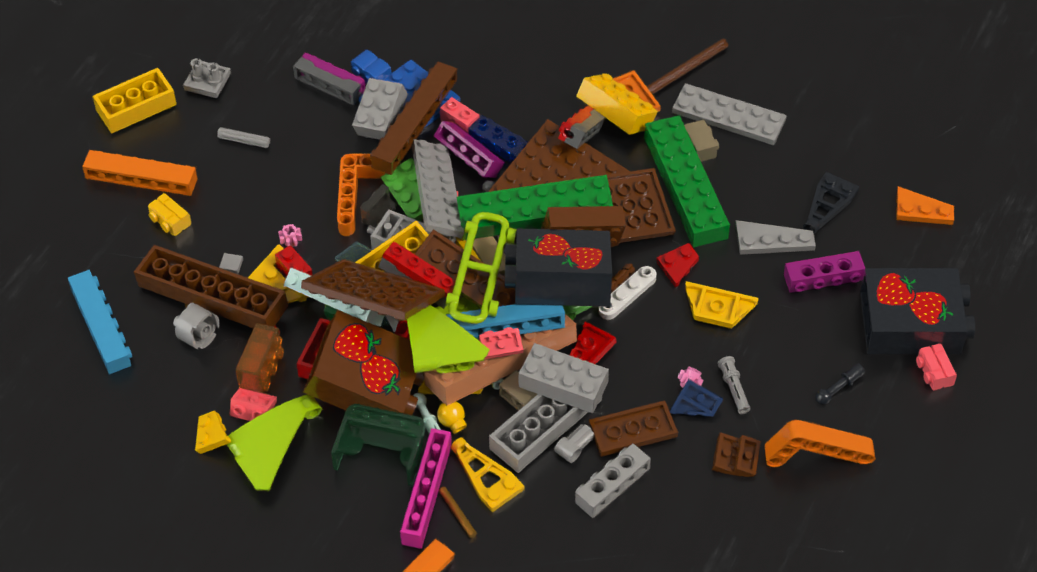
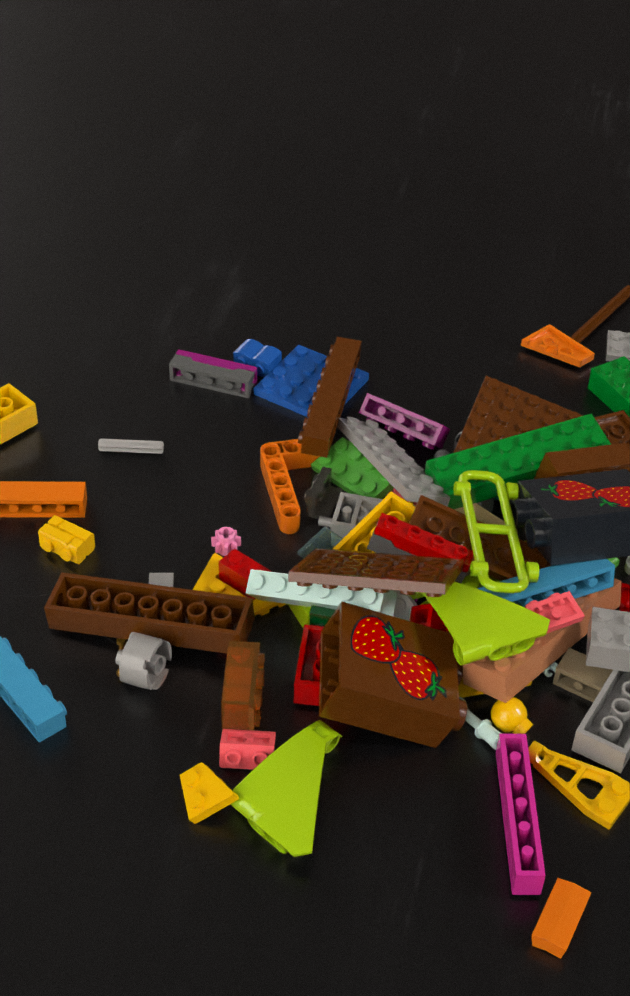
camera: 15 degrees left, 10 degrees down
(206, 78) = (67, 391): light grey plate -> none
(379, 108) = (287, 393): light grey brick -> none
(381, 429) = (441, 748): clear green windscreen -> none
(457, 512) = (569, 839): pearl gold bar -> none
(458, 113) = (380, 387): coral brick -> none
(497, 139) = (435, 407): clear blue brick -> none
(581, 127) = (529, 385): dark grey piece -> none
(616, 103) = (550, 354): yellow brick -> none

